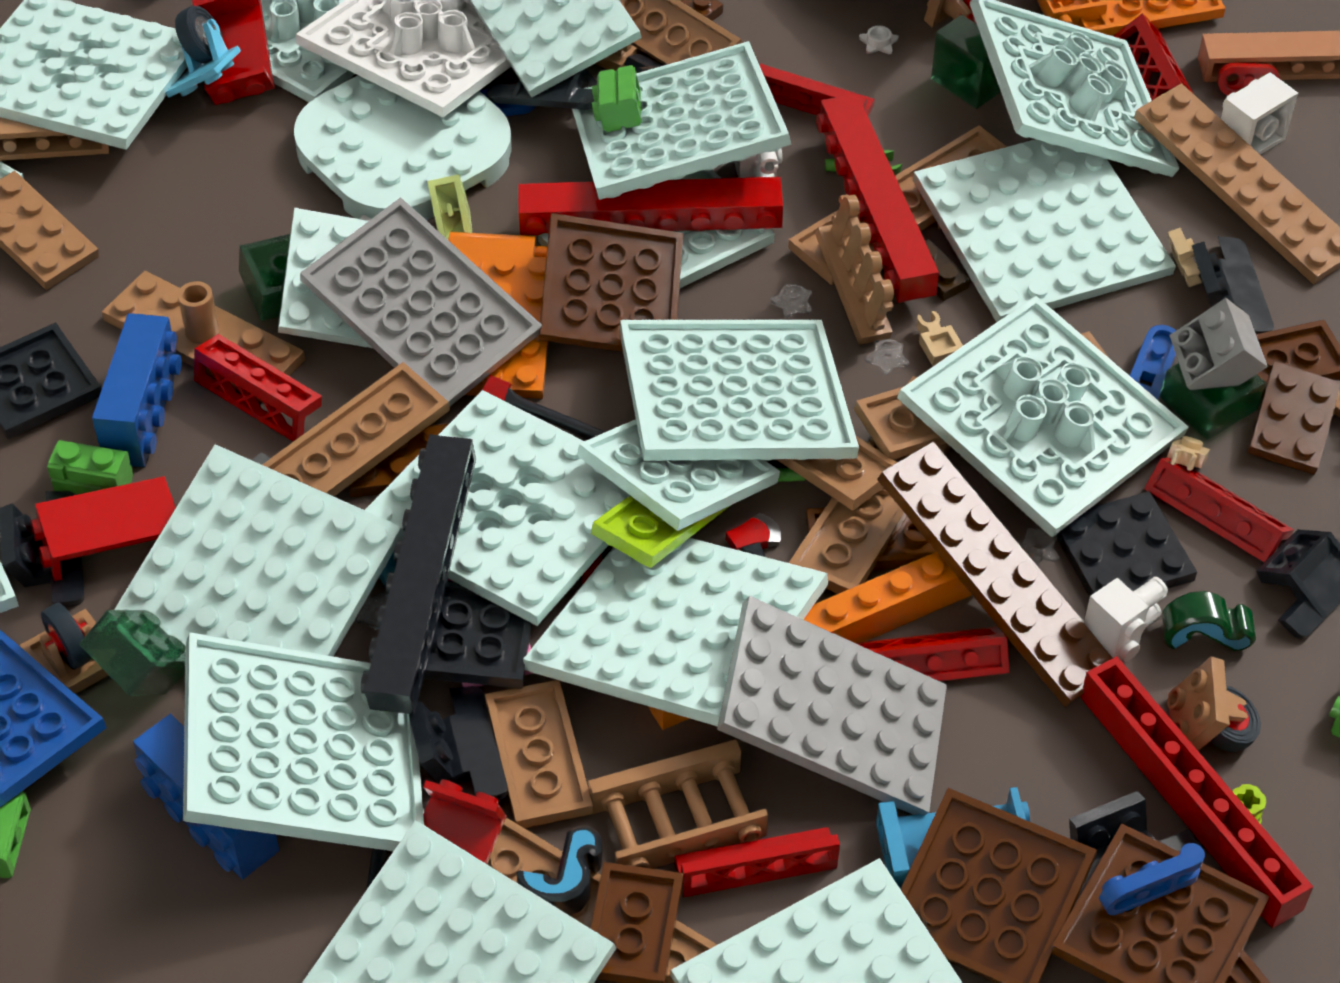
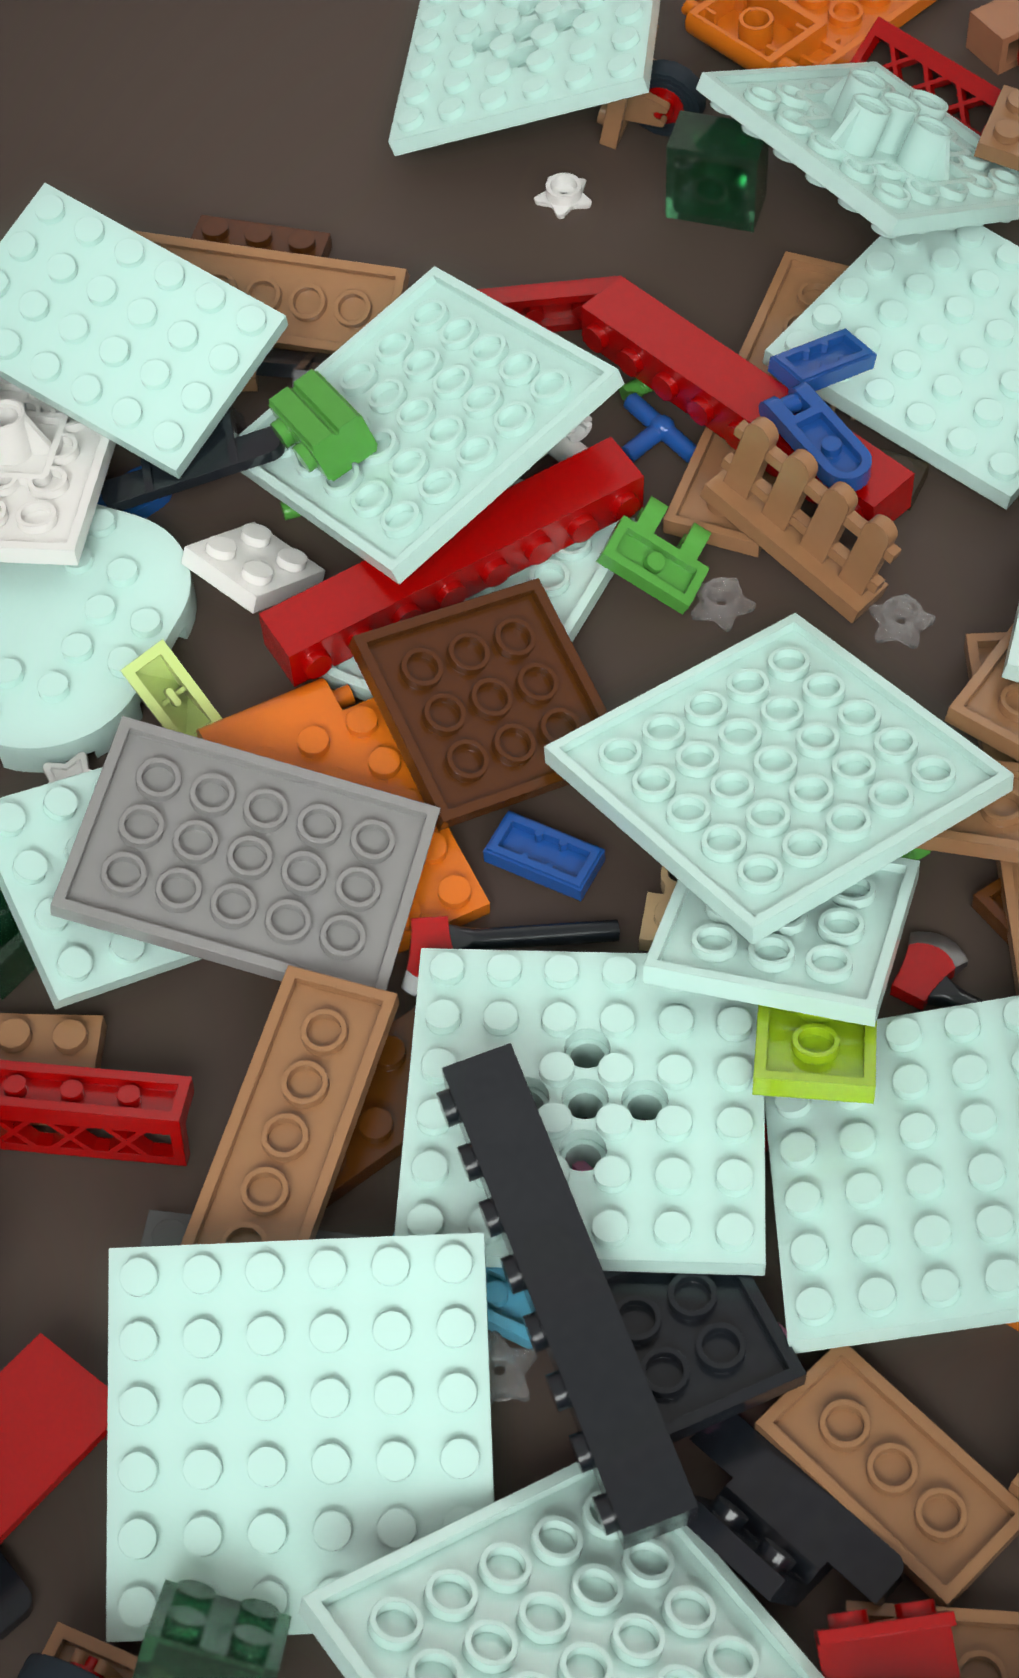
camera: 25 degrees left, 5 degrees up
(541, 160) = (252, 566): none -> white plate
(589, 381) = (544, 855): none -> blue plate
(763, 260) = (654, 564): none -> bright green plate
(828, 192) = (658, 429): none -> blue piece
(894, 228) = (821, 433): none -> blue plate
(935, 190) = (823, 361): none -> blue plate
(936, 340) = (957, 570): tan plate -> none

